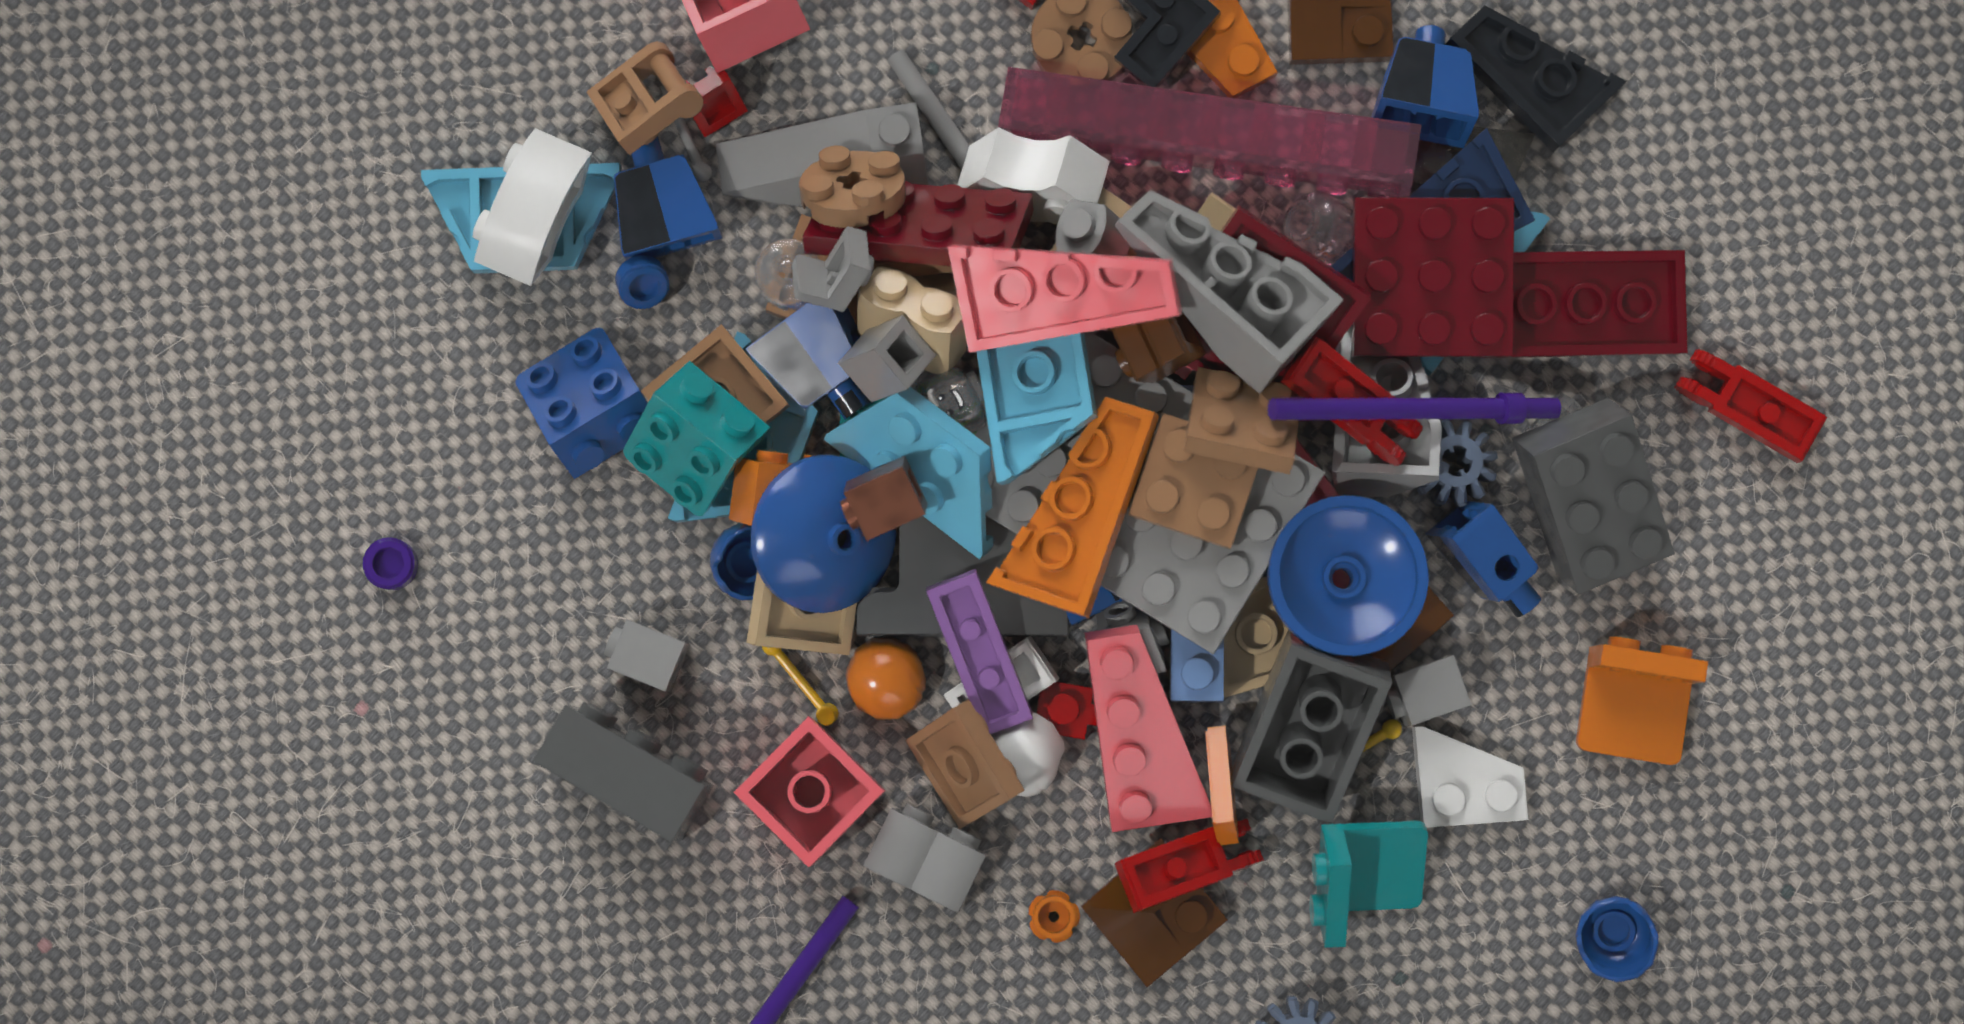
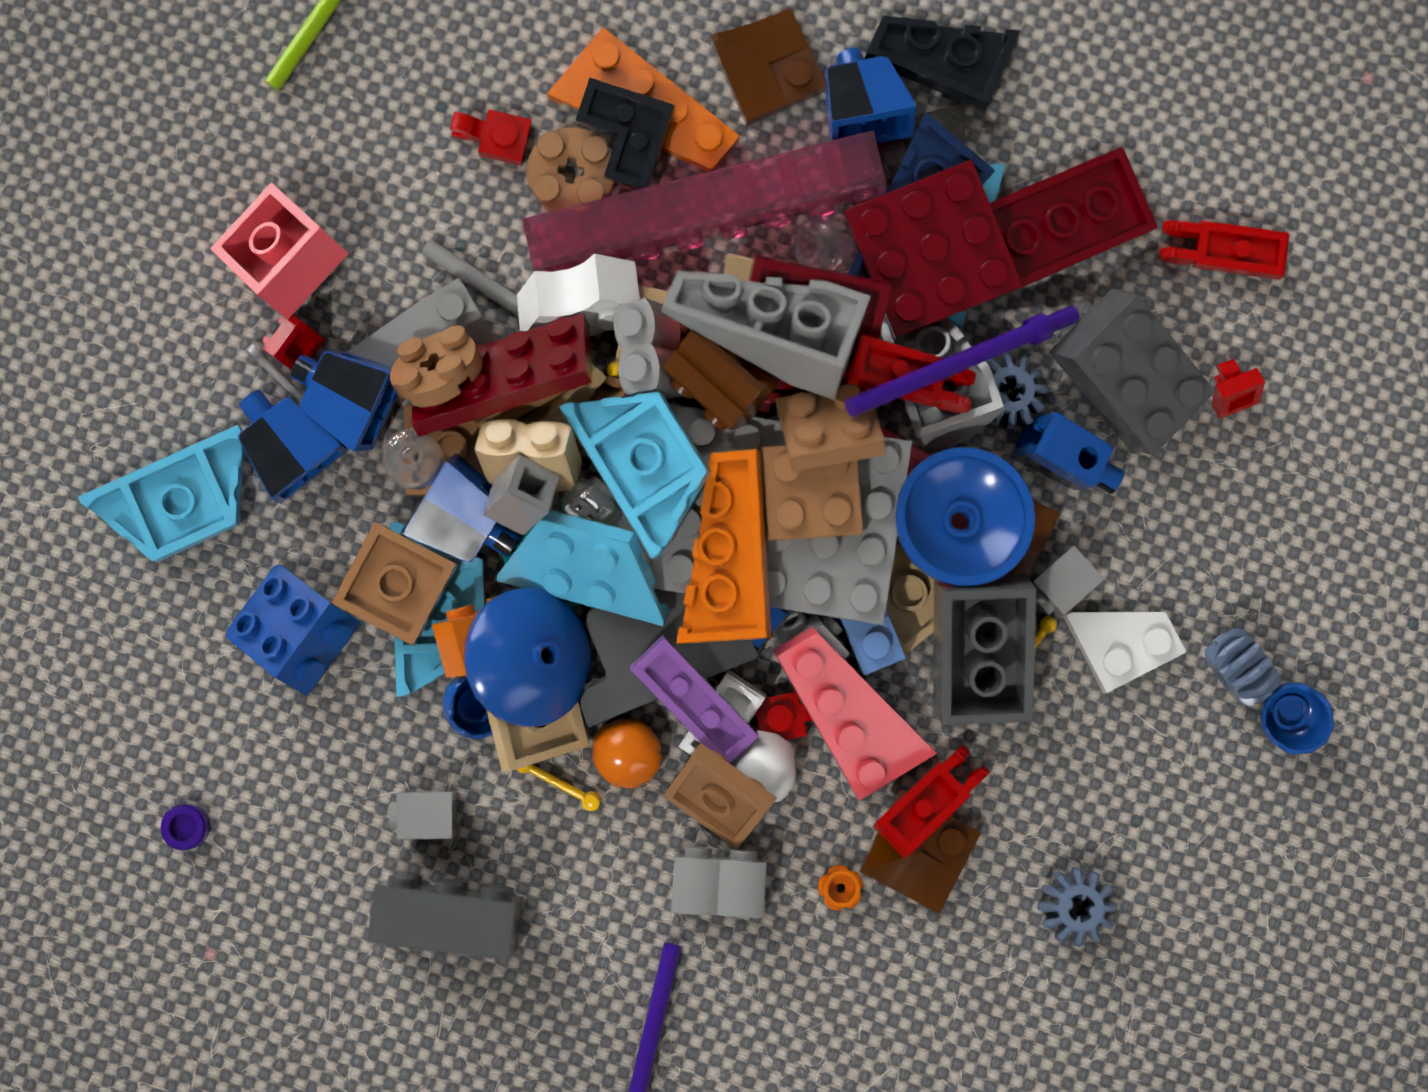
camera: 25 degrees left, 0 degrees up
(531, 206) = (179, 489): white brick -> none
(630, 107) = (227, 375): medium nougat plate -> none
(642, 282) = (296, 513): blue tile -> none
(693, 438) = (389, 623): teal bracket -> none
(746, 179) = (346, 396): none -> blue torso
(809, 791) = (602, 870): coral brick -> none
(839, 277) = (455, 443): light grey bracket -> none
(883, 499) = (565, 610): copper brick -> none
(1043, 295) = (628, 390): coral wing -> none
(1220, 783) = (932, 727): orange tile -> none
(1365, 870) = (1076, 746): teal bracket -> none
(1581, 860) = (1242, 667): none -> sand blue gear
(1637, 700) = (1233, 521): orange bracket -> none
(1698, 561) = (1236, 389): none -> red tile

